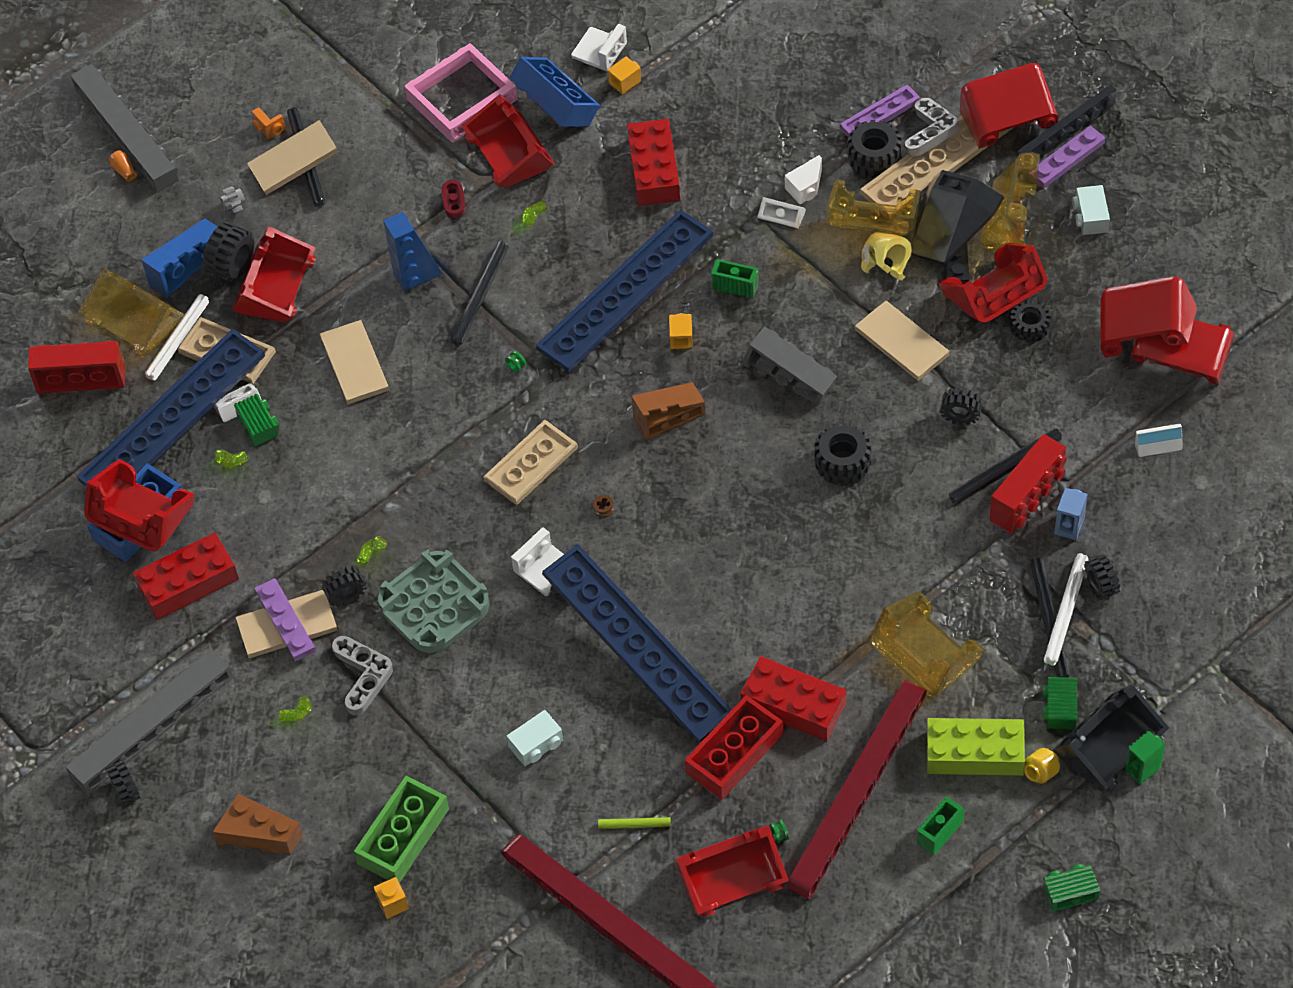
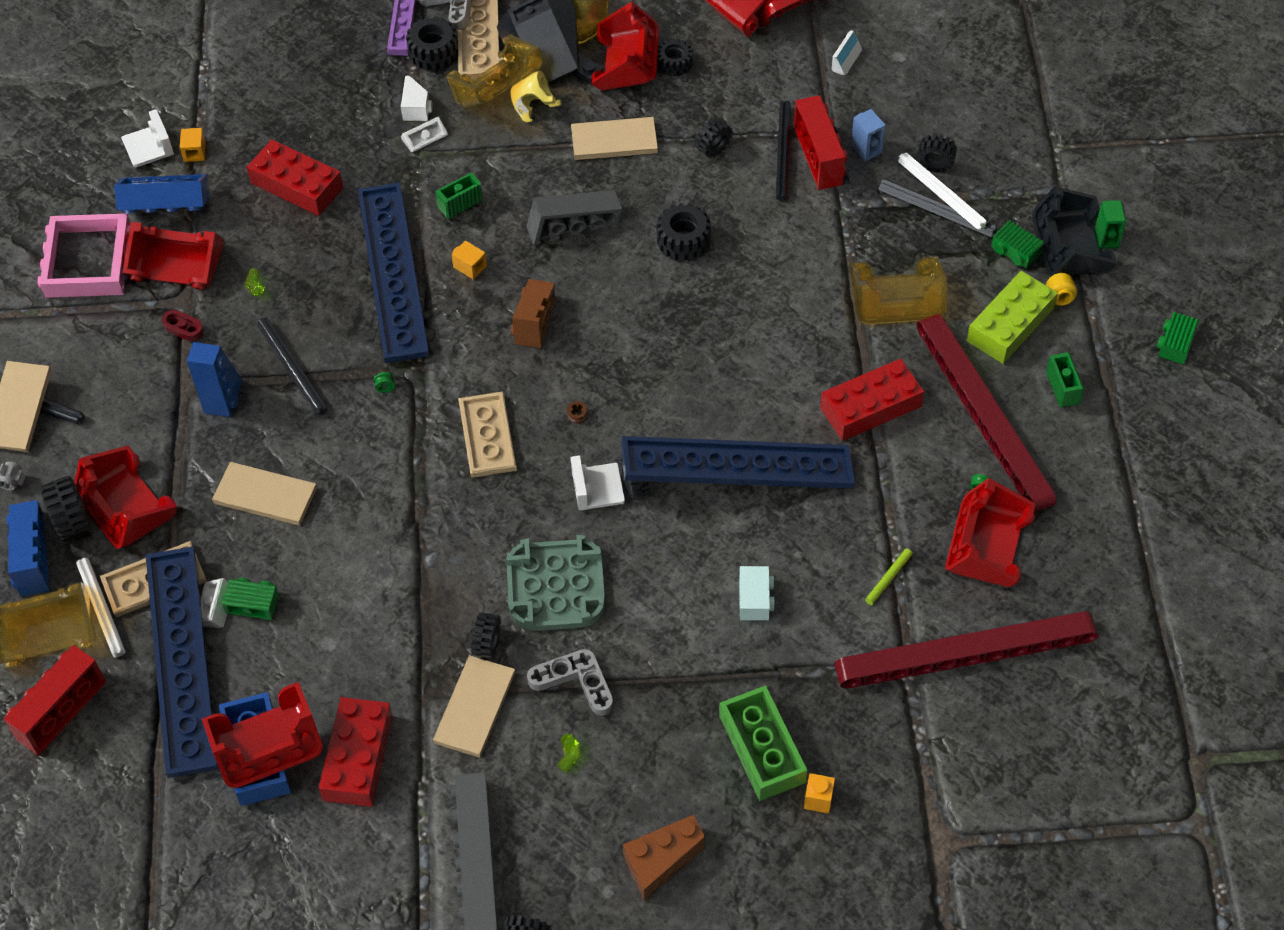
camera: 55 degrees left, 0 degrees up
(229, 460) = (267, 645): clear neon green arm -> none
(285, 619) = (473, 702): medium lavender plate -> none
(368, 547) = (460, 588): clear neon green arm -> none
(734, 747) = (884, 463): red brick -> none

